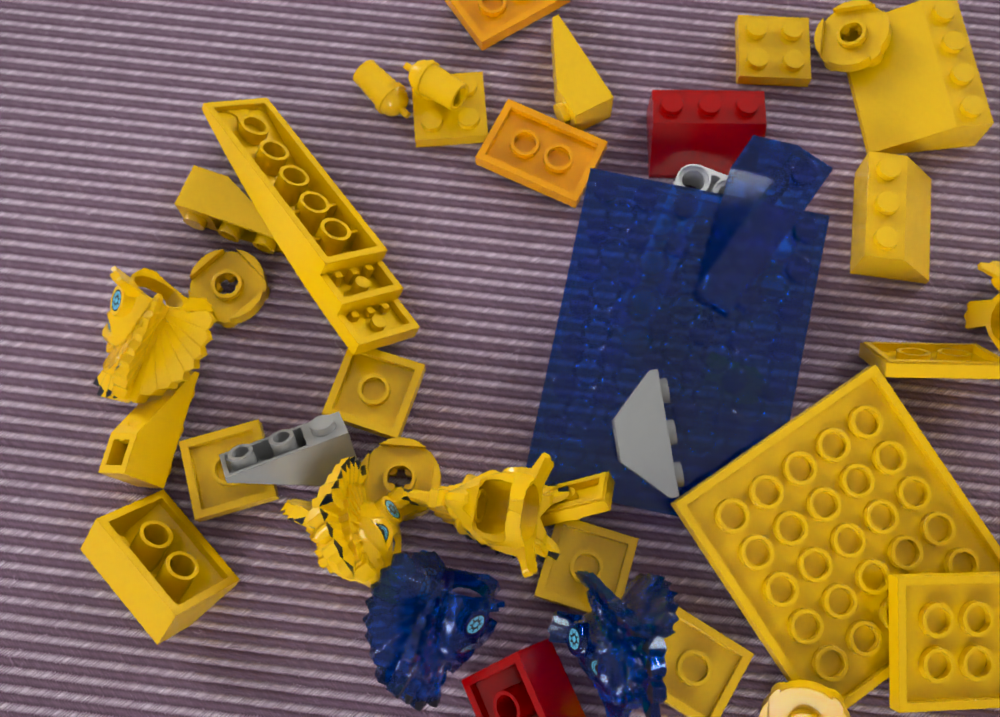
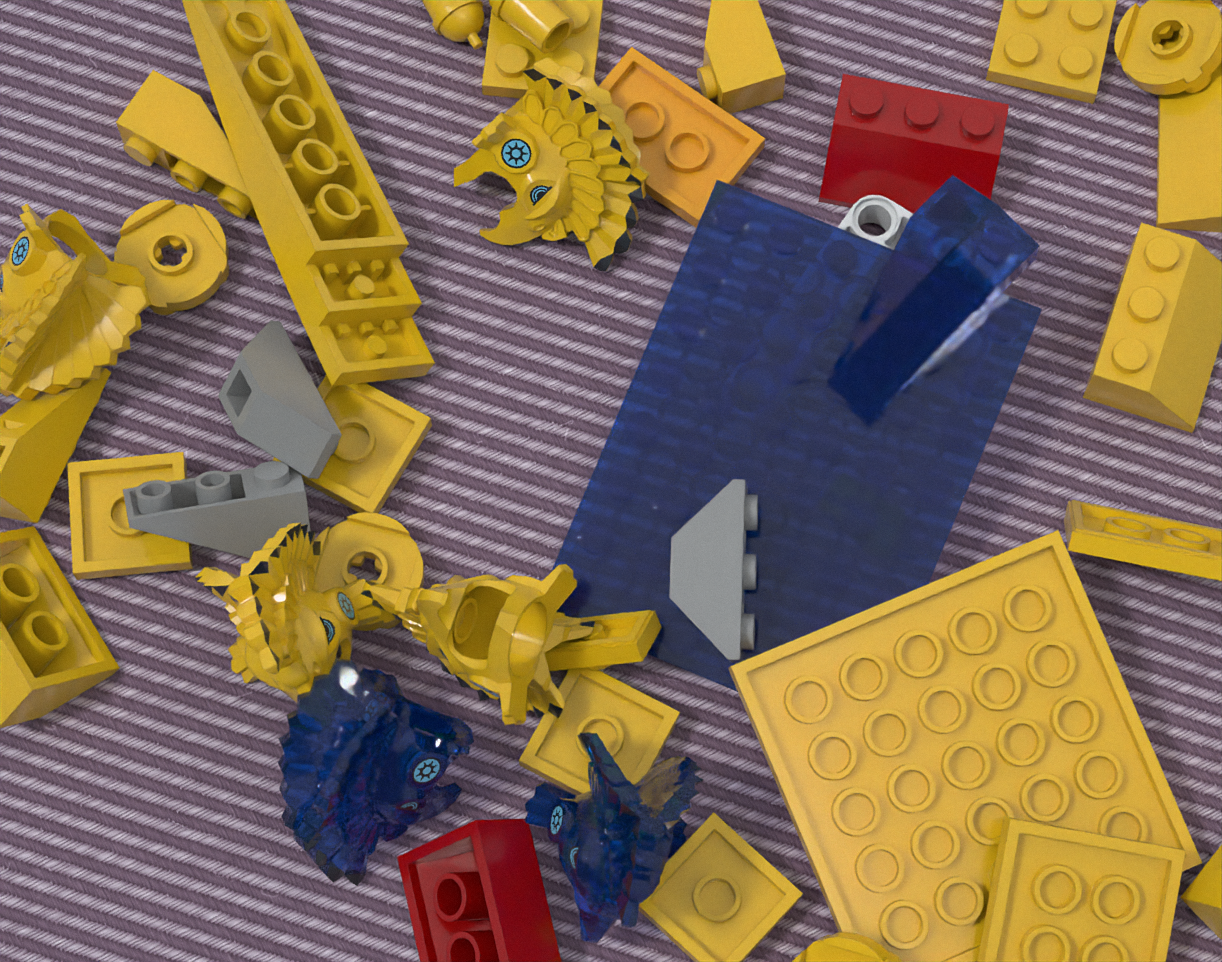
camera: 10 degrees right, 0 degrees up
(318, 375) = (278, 404): none -> light grey slope
(483, 178) = (566, 161): none -> yellow piece

